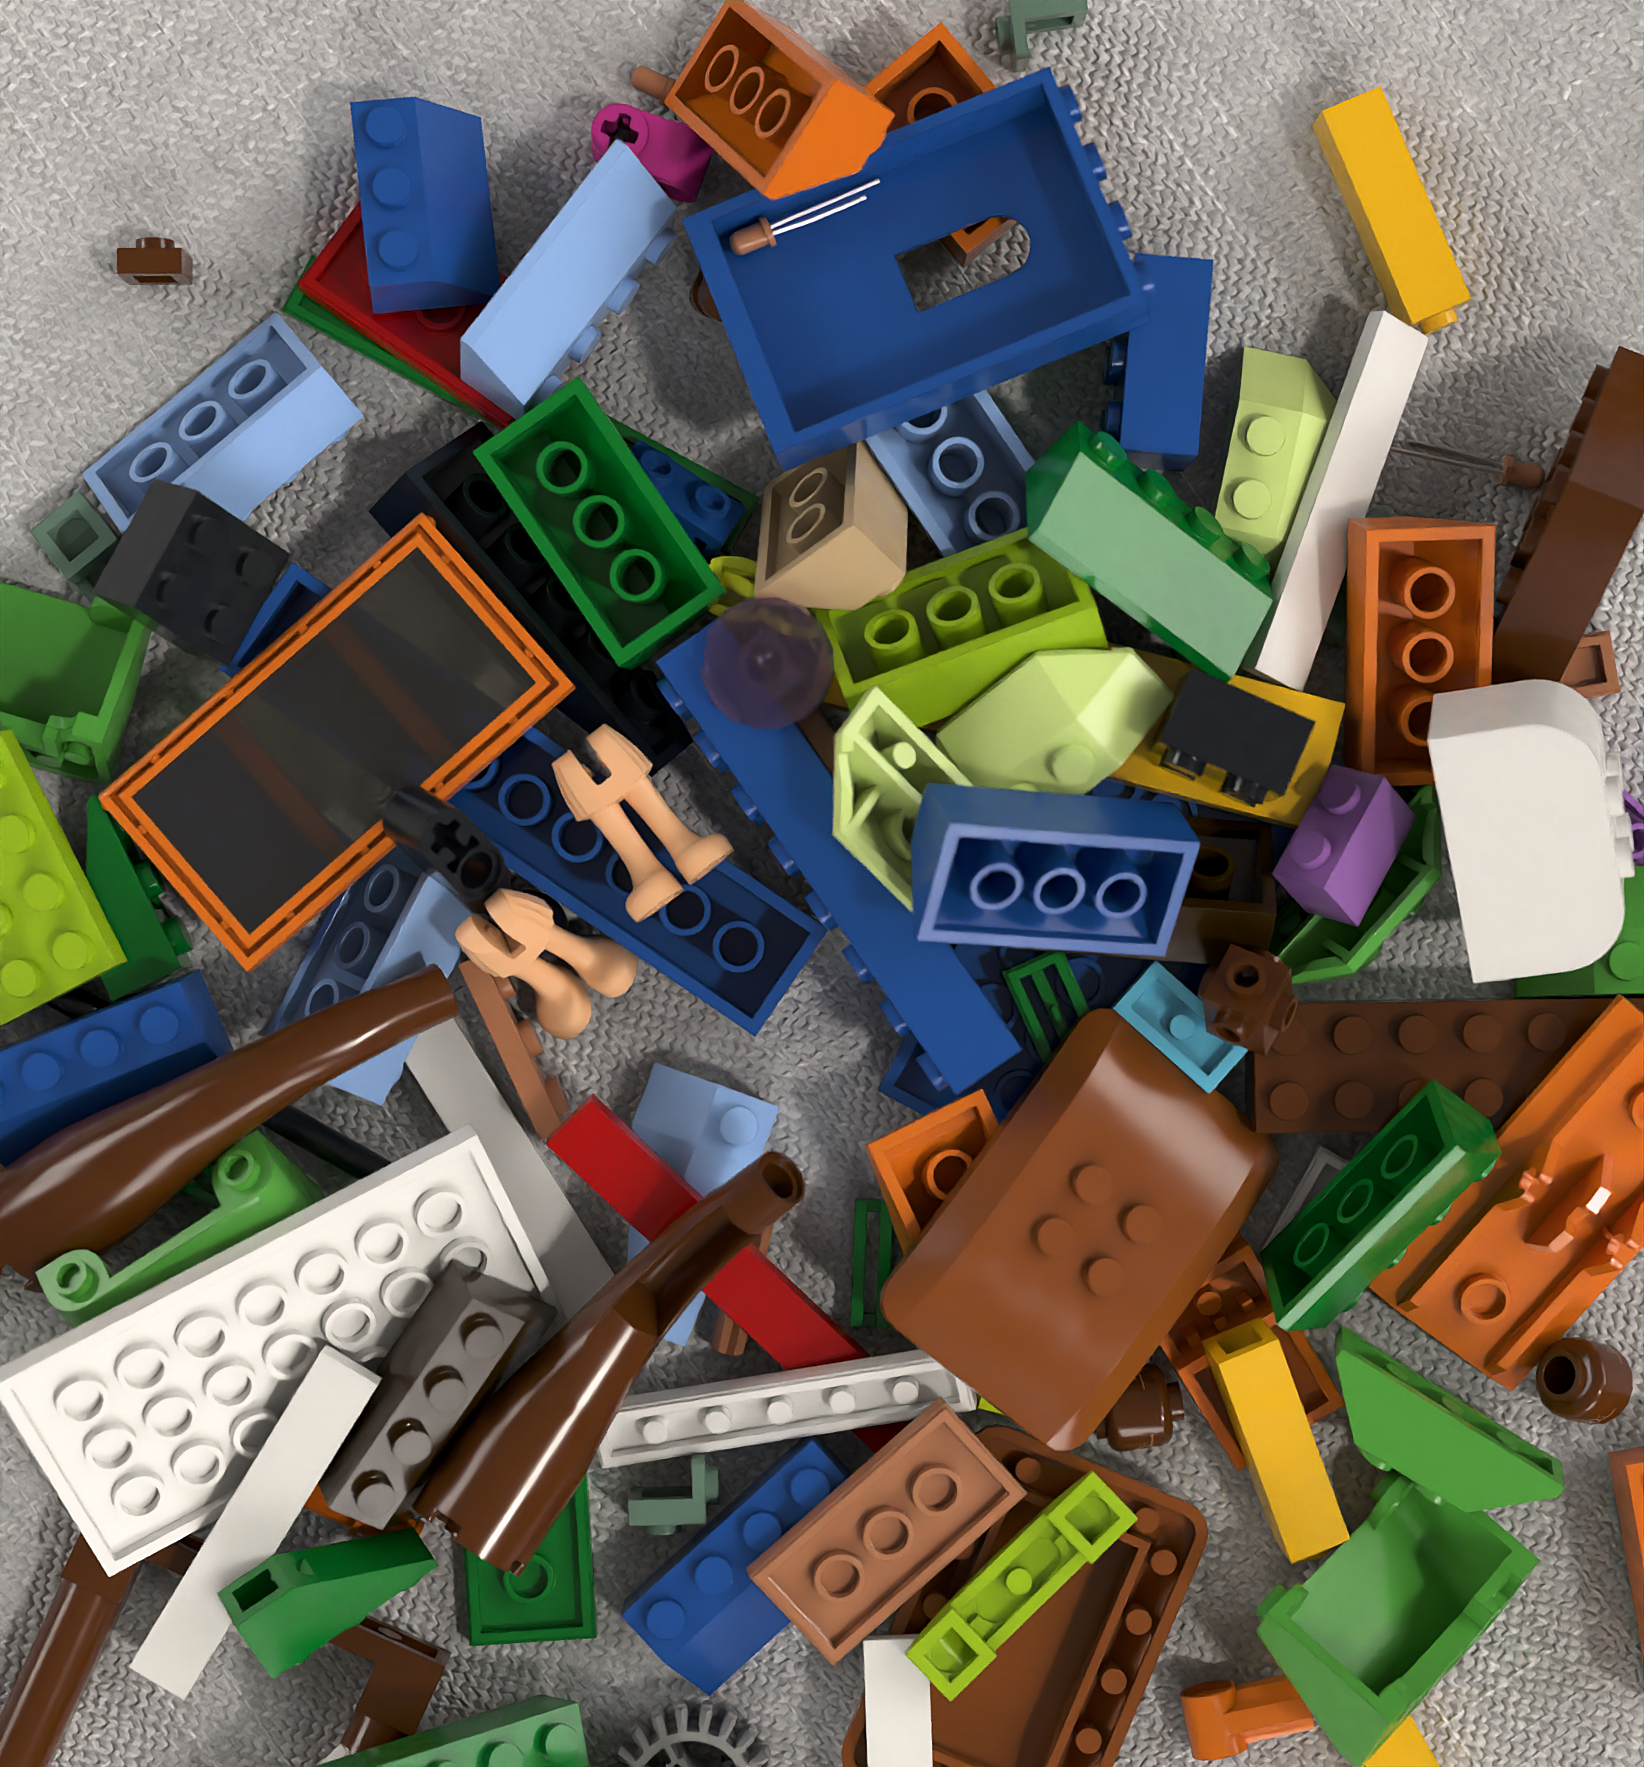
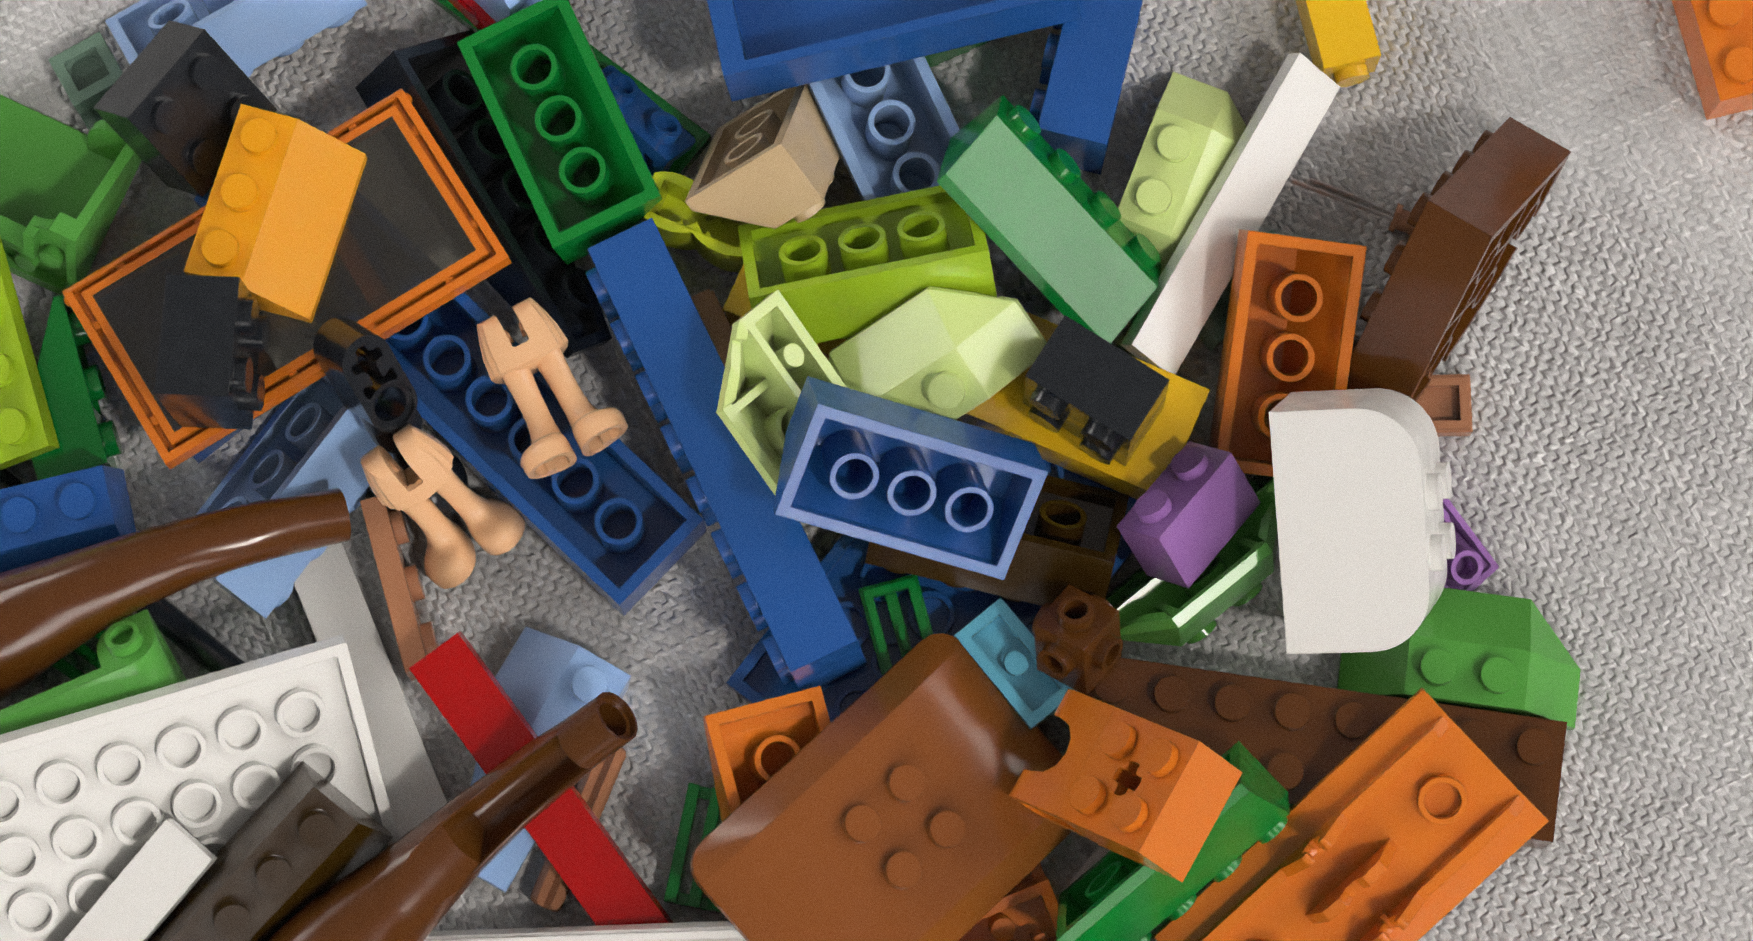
camera: 15 degrees right, 10 degrees down
(274, 852) = (211, 352): none -> black brick
(313, 681) = (277, 211): none -> light orange slope
(767, 663) = (686, 260): clear purple tile -> none
(1335, 1160) = (1131, 786): none -> orange brick

